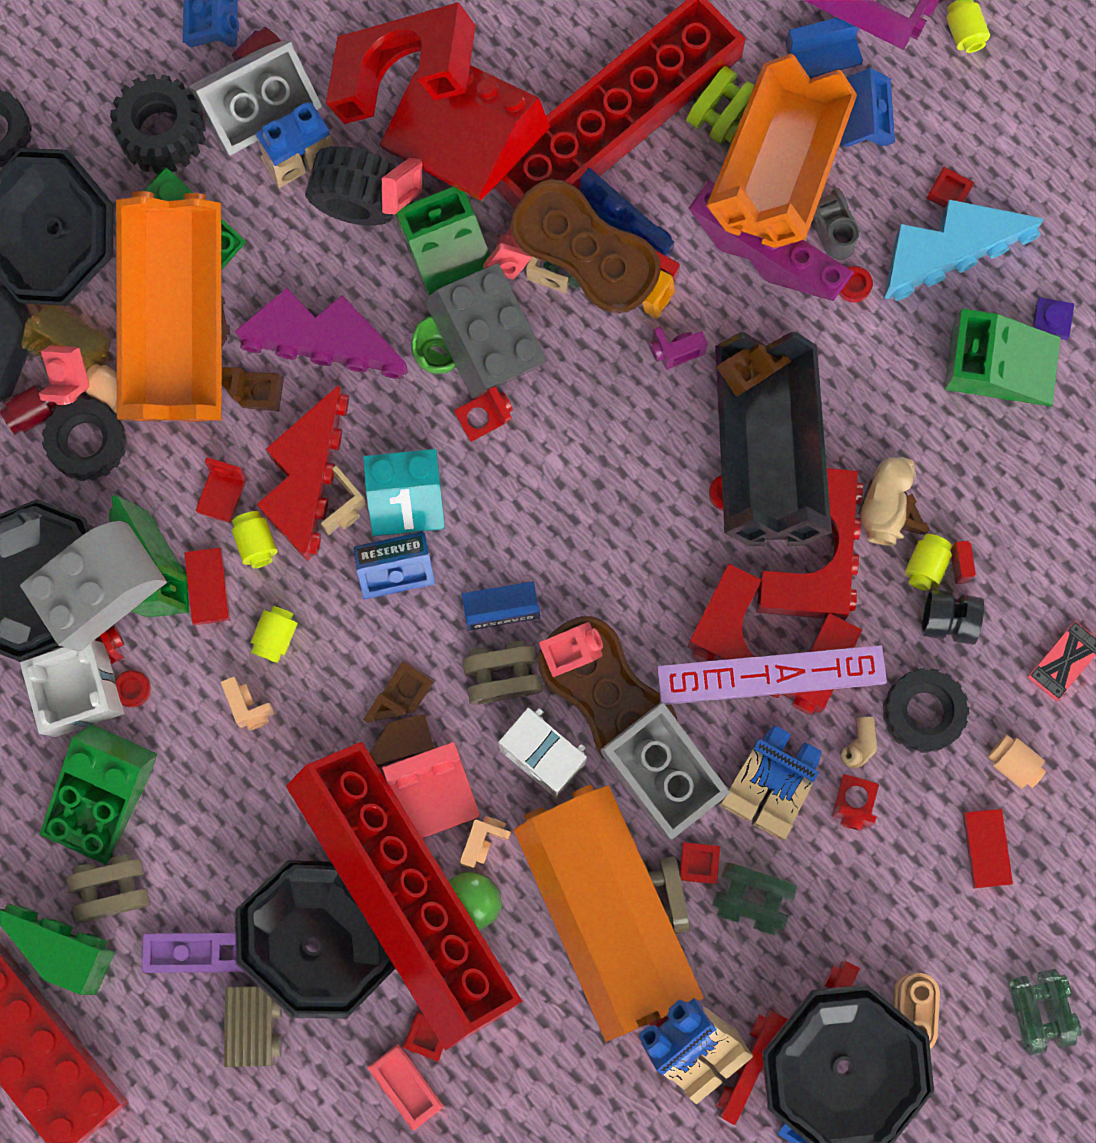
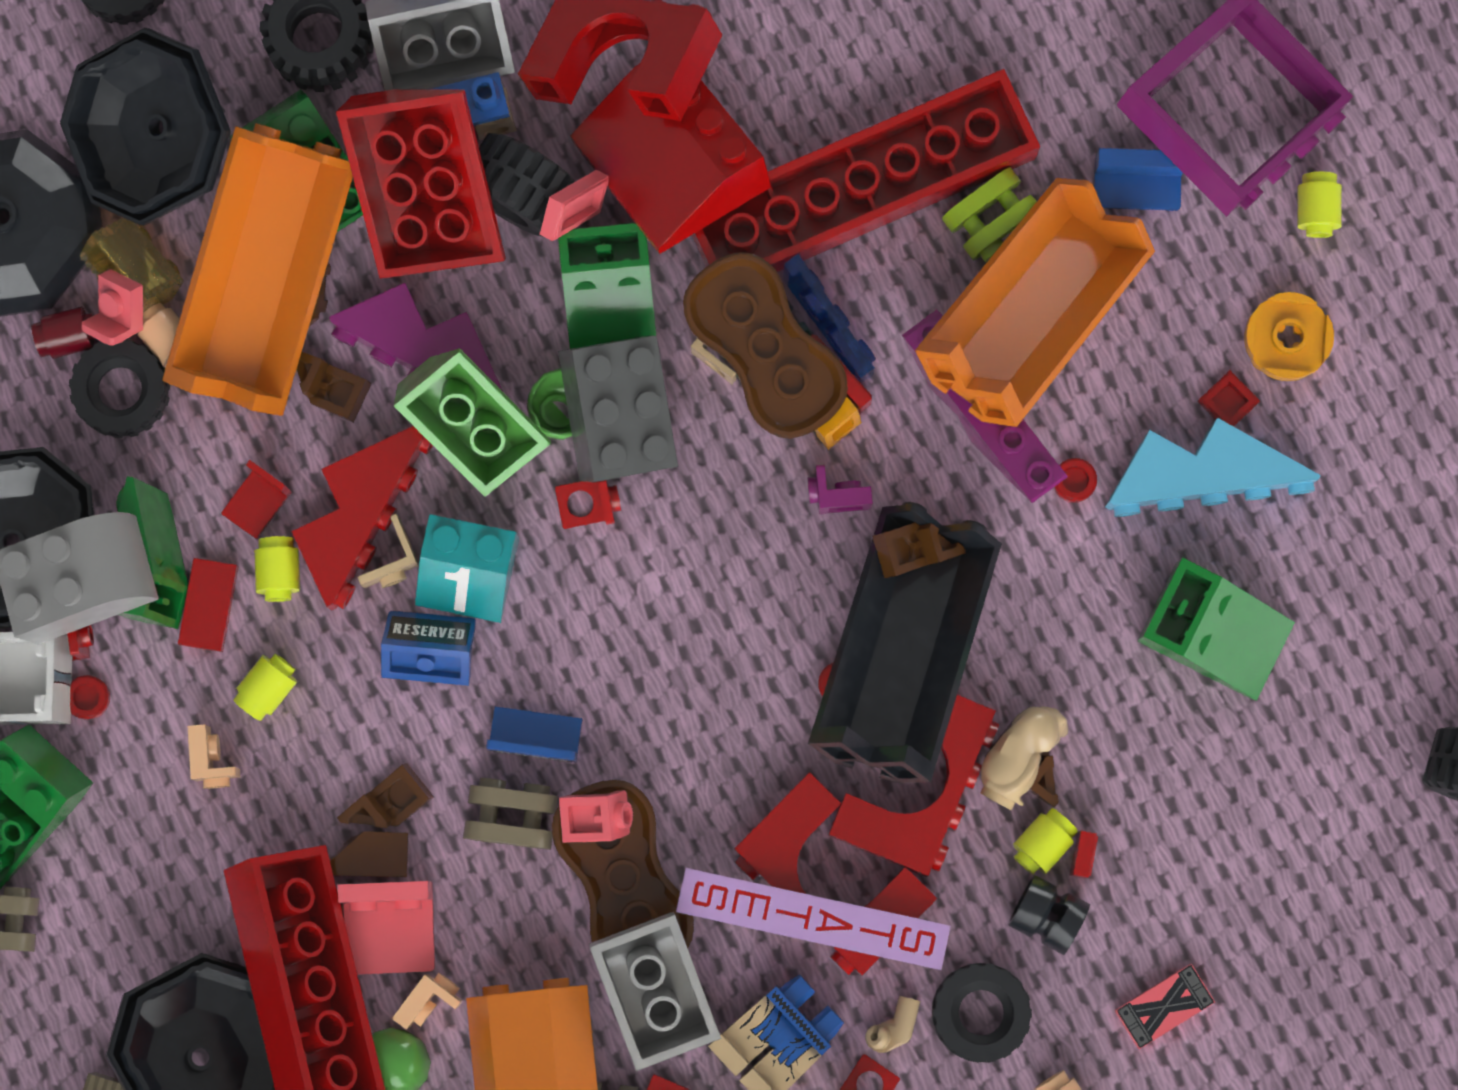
camera: 20 degrees right, 5 degrees up
(187, 953) = (58, 1019): medium lavender plate -> none
(277, 199) = (420, 180): none -> red slope
(372, 370) = (469, 419): none -> bright green slope
(508, 255) = (671, 325): coral bracket -> none
(542, 752) = (524, 924): white container -> none
(835, 219) = (1075, 393): dark grey piece -> none
(872, 110) = (1168, 275): blue panel -> none
(990, 114) = (1307, 320): none -> light orange plate
(1054, 317) = (1295, 595): dark purple plate -> none

